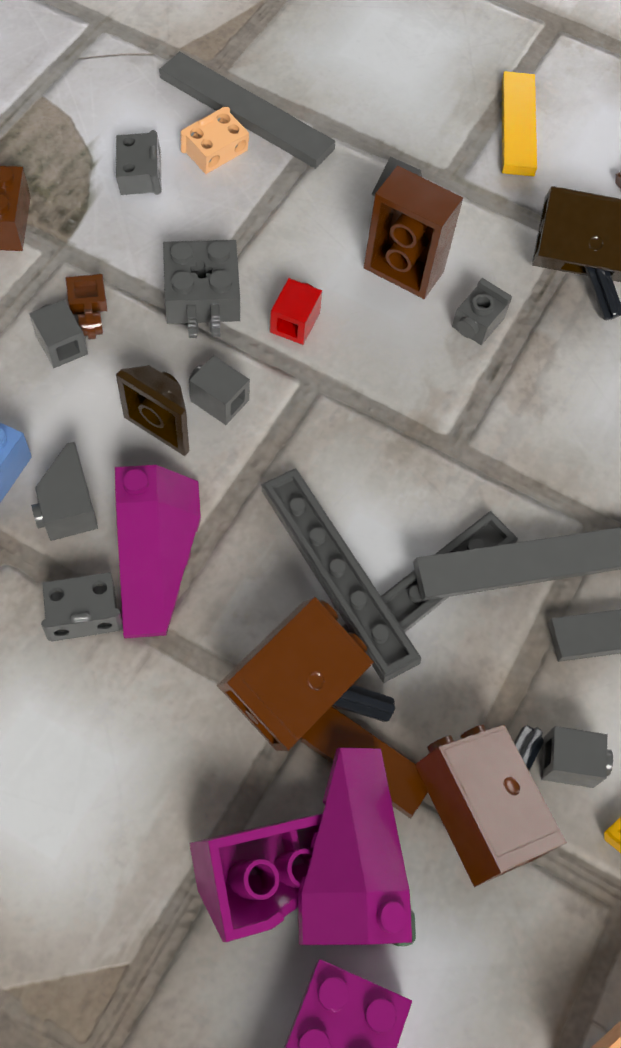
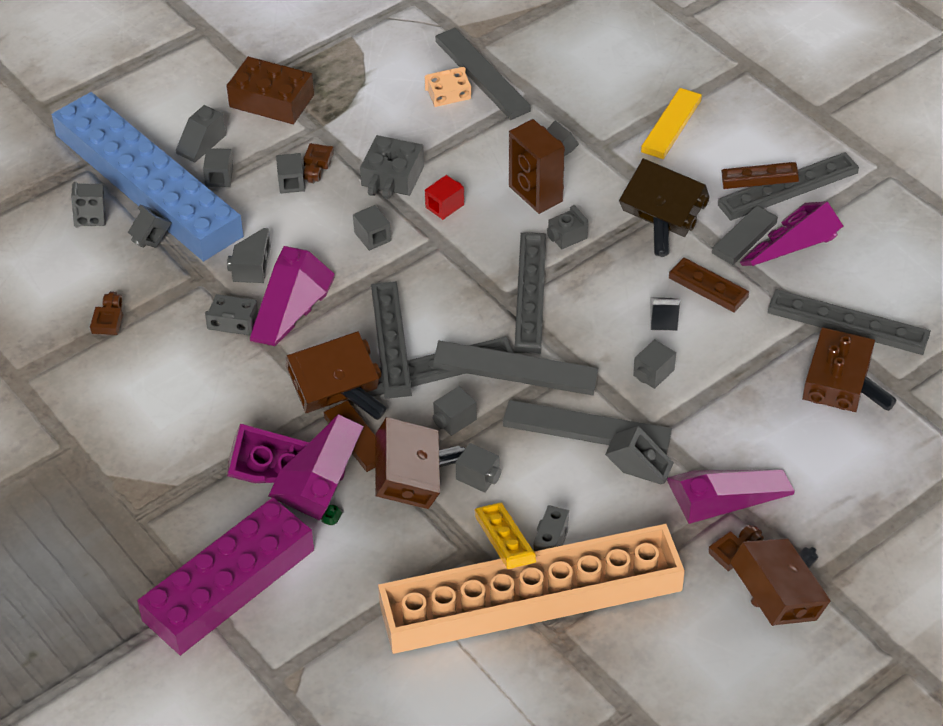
camera: 30 degrees right, 15 degrees down
(138, 163) = (390, 89): dark grey piece -> none
(155, 405) = (327, 223): dark brown slope -> none
(482, 430) = (530, 293): none -> dark grey tile
(491, 667) = (454, 411): none -> dark grey brick

